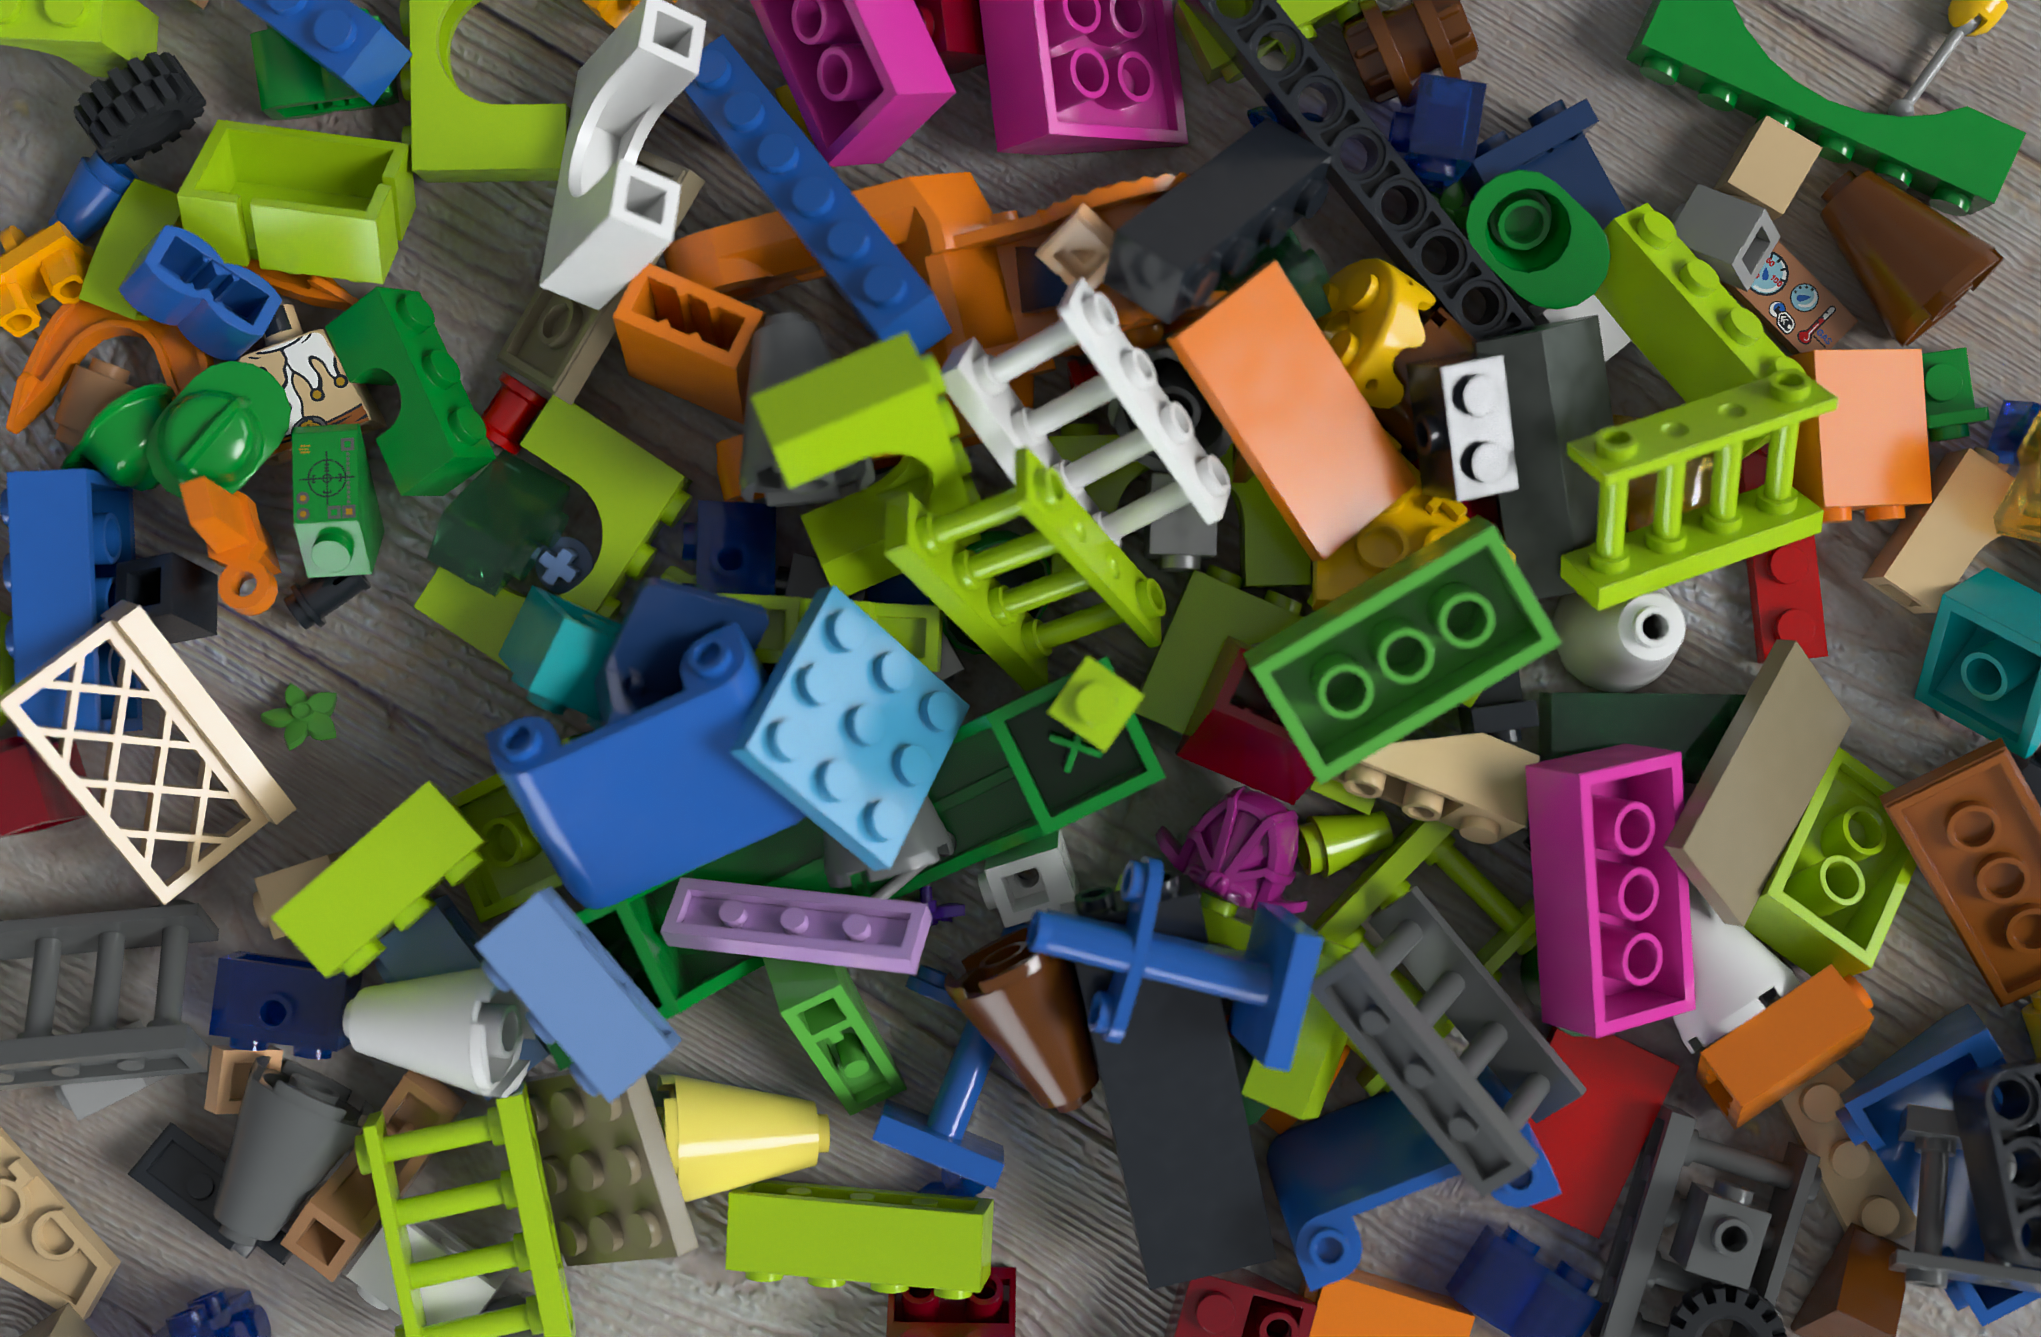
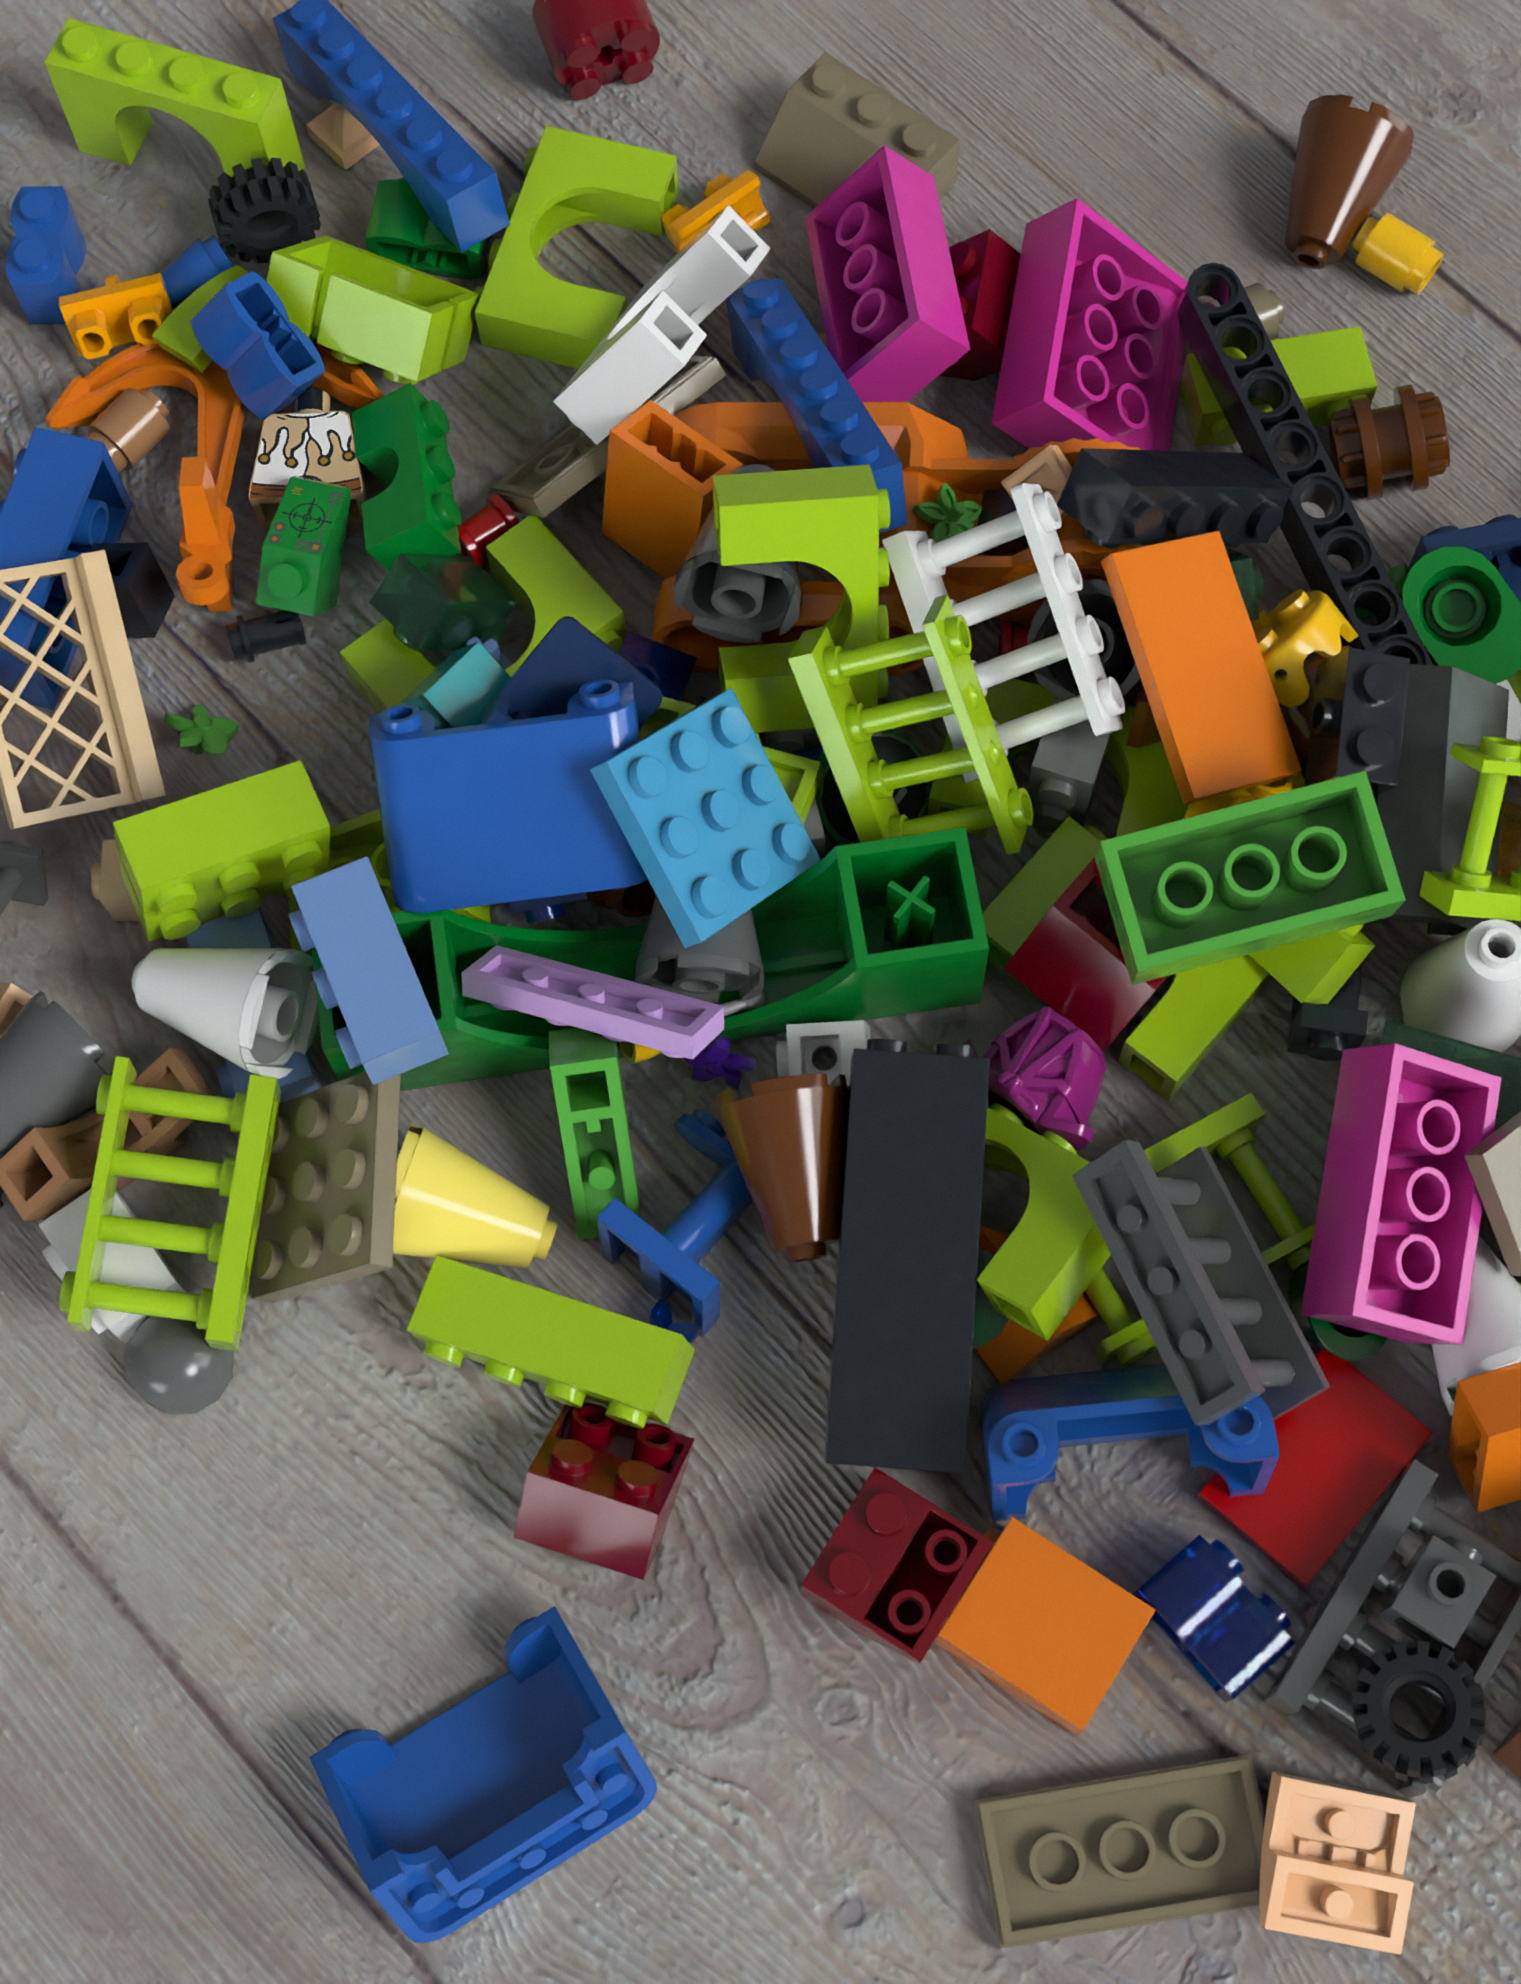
camera: 20 degrees right, 20 degrees down
(119, 438) = (150, 440): green piece -> none
(219, 428) = (242, 446): green piece -> none
(282, 1003) = (79, 967): clear blue brick -> none
(991, 298) = (948, 514): none -> bright green plant
(1095, 703) = (942, 847): lime brick -> none
(1265, 980) = (1025, 1151): blue piece -> none
(1339, 841) = (1140, 1112): lime cone -> none
(1439, 128) = (1399, 502): clear blue brick -> none
(1453, 780) = (1259, 1056): tan slope -> none

